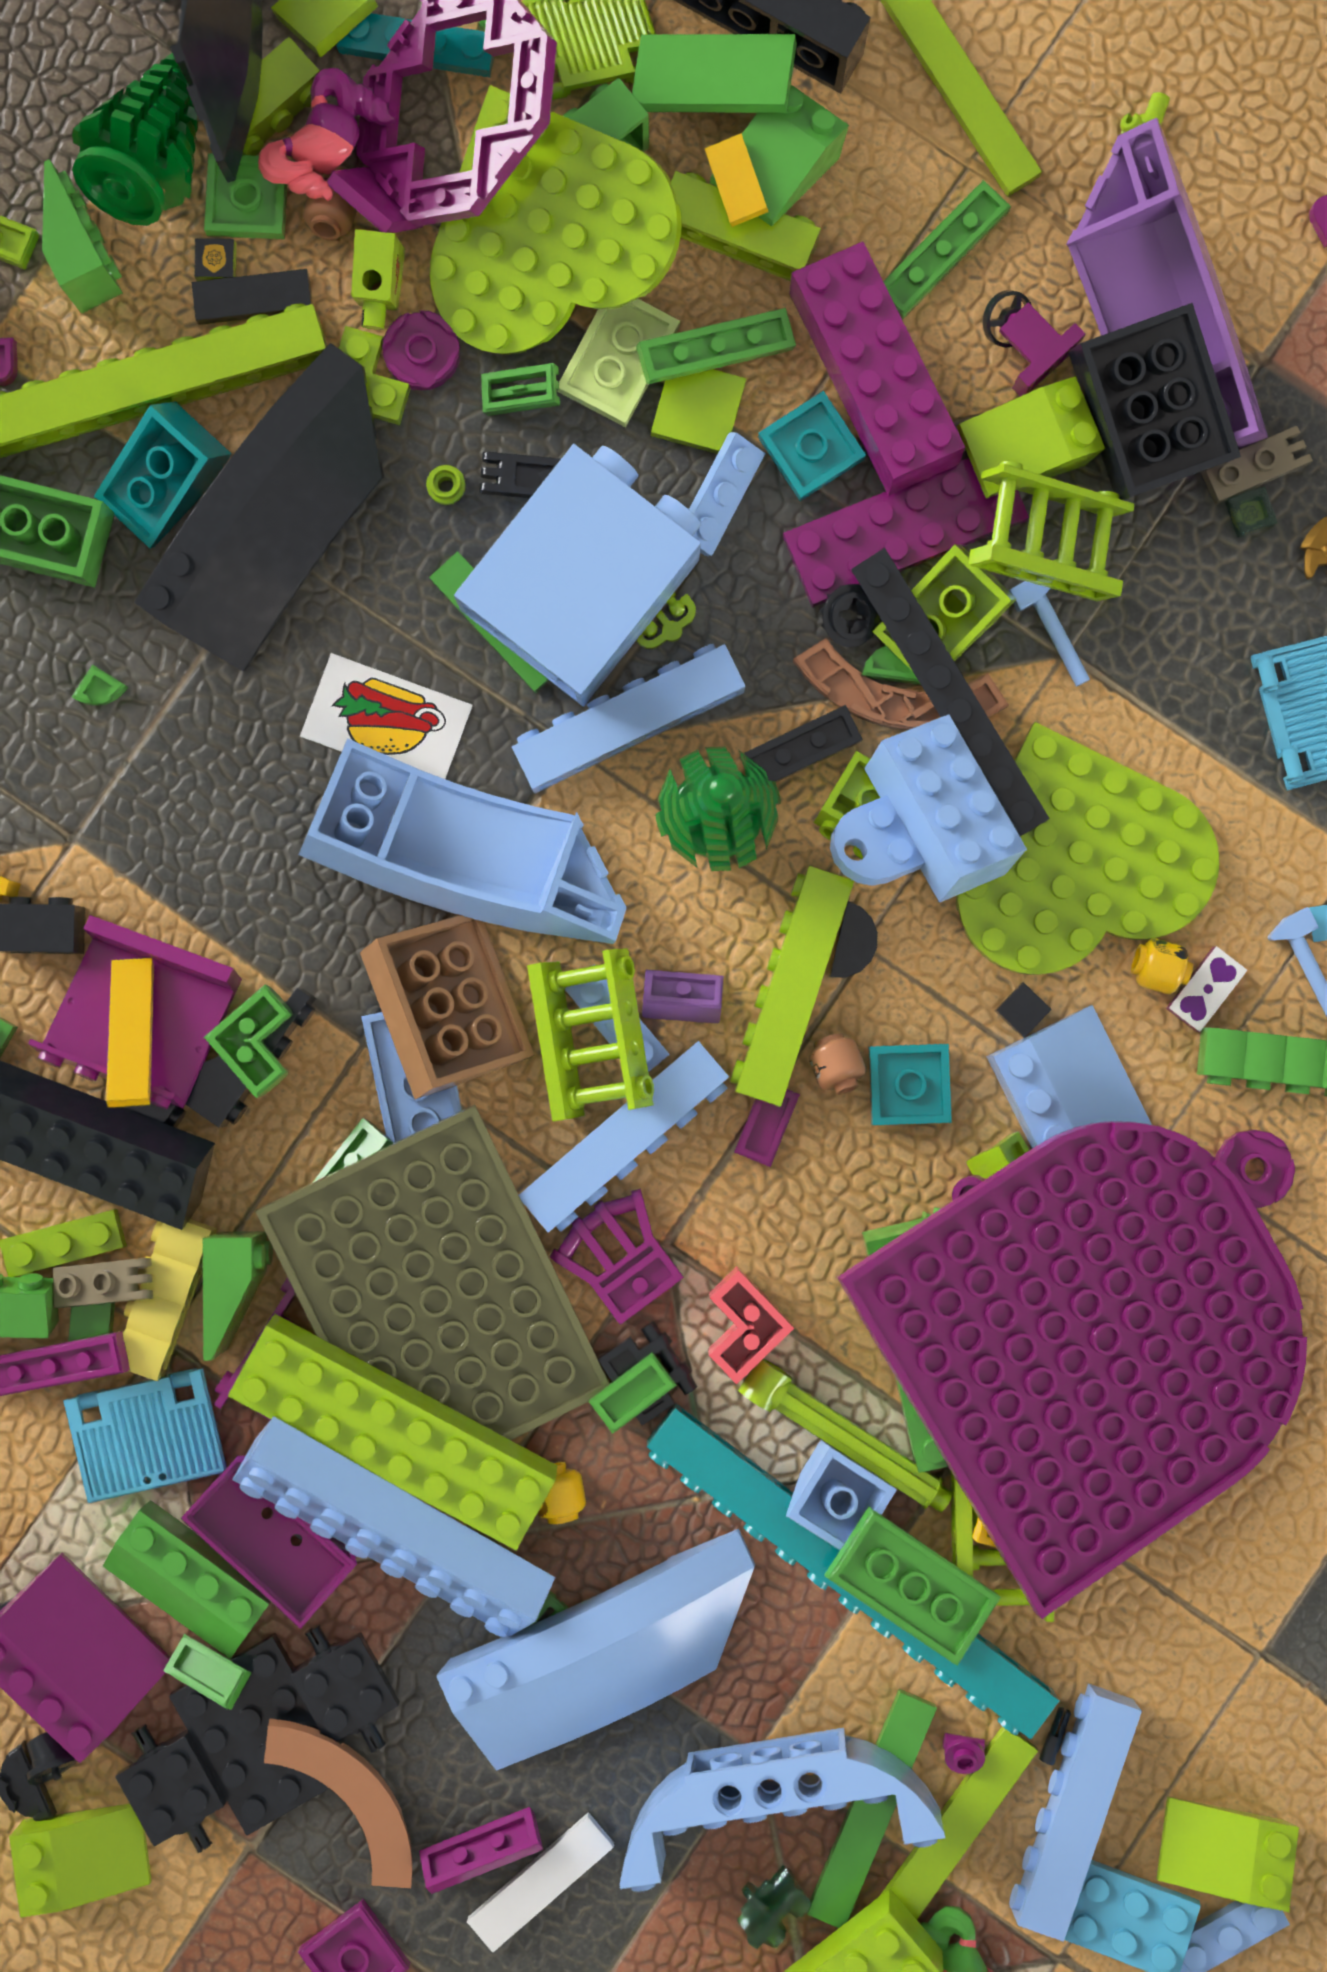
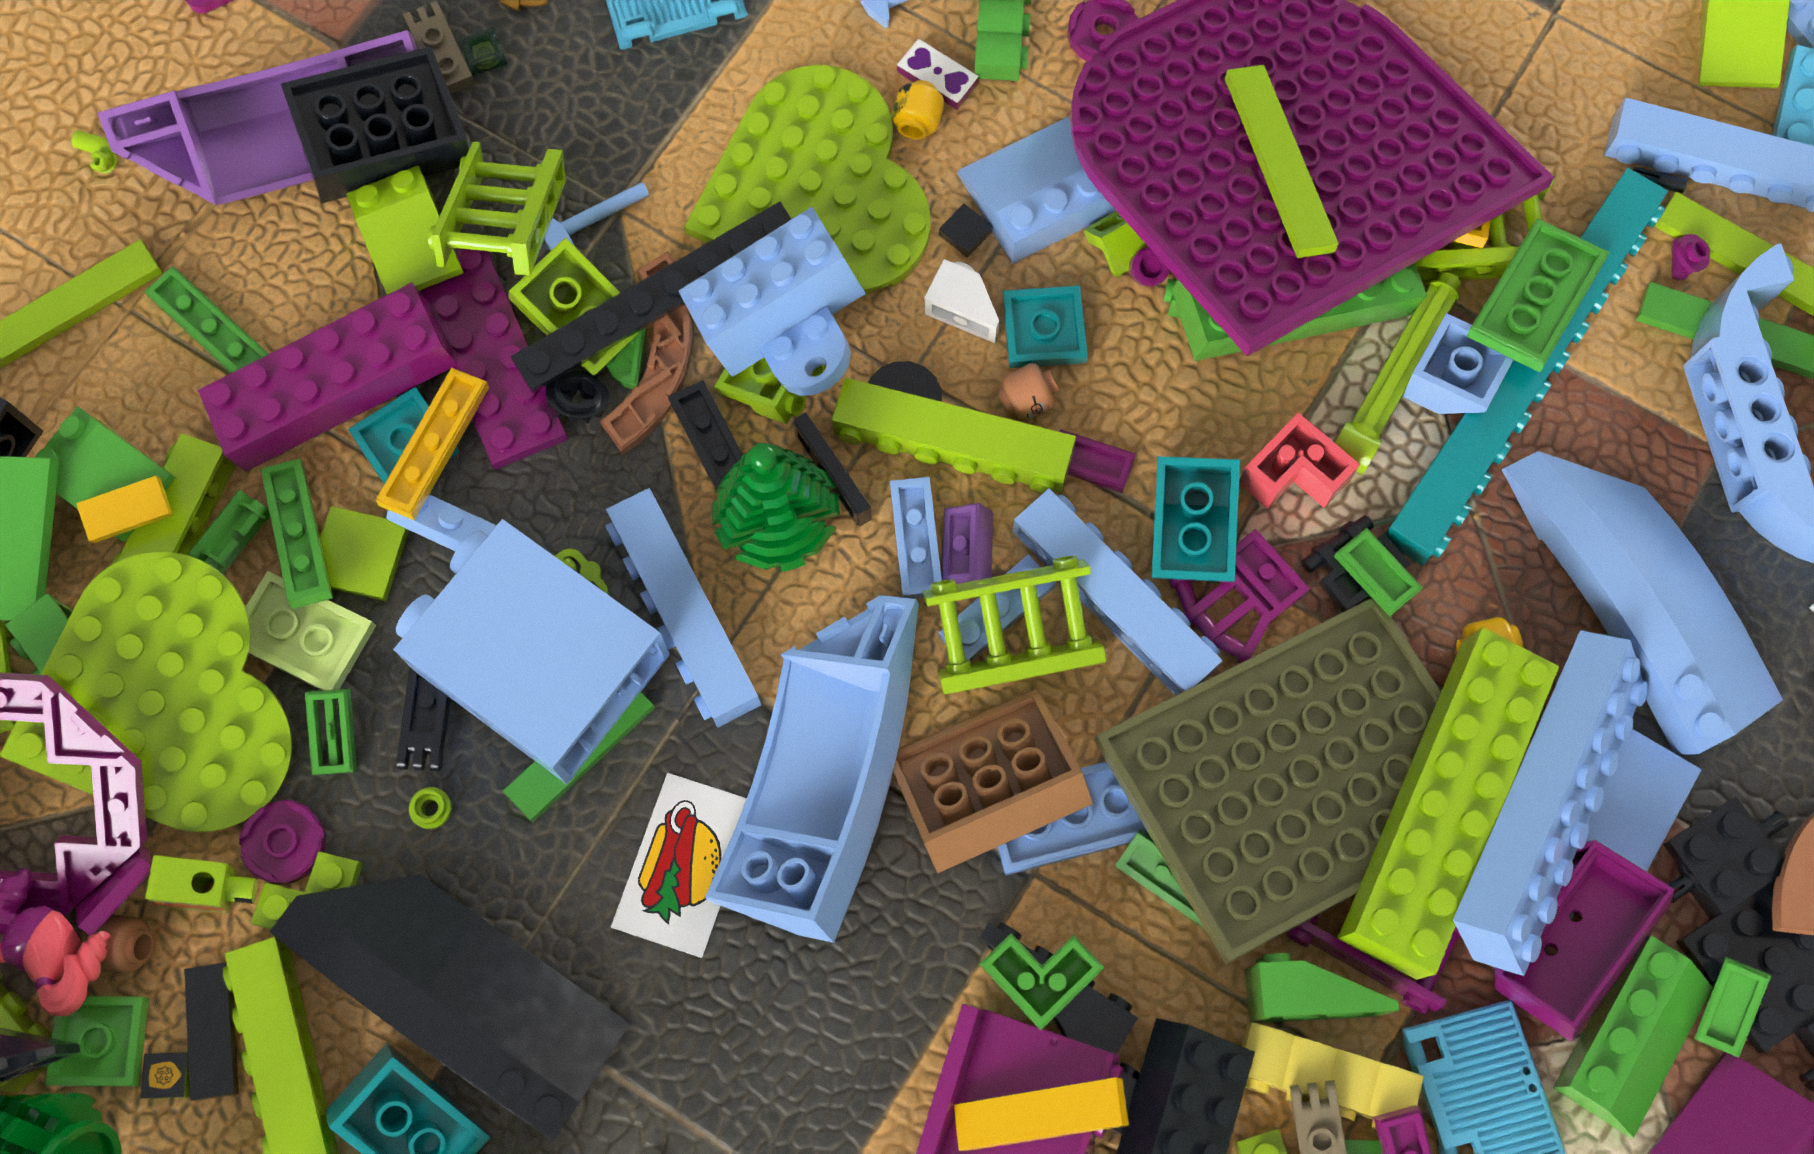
camera: 90 degrees left, 15 degrees down
(401, 1618) = (1641, 799): none -> light blue tile
(691, 946) = (915, 535): none -> light blue plate
(691, 1218) = (1196, 519): none -> teal slope
(721, 281) = (230, 531): none -> bright green hinge
(763, 865) = (825, 459): none -> black tile
(800, 474) = (432, 444): none -> yellow tile
(942, 1001) = (962, 301): none -> white slope
(1031, 338) = (303, 238): magenta piece -> none
(1063, 1334) = (1281, 162): none -> lime tile

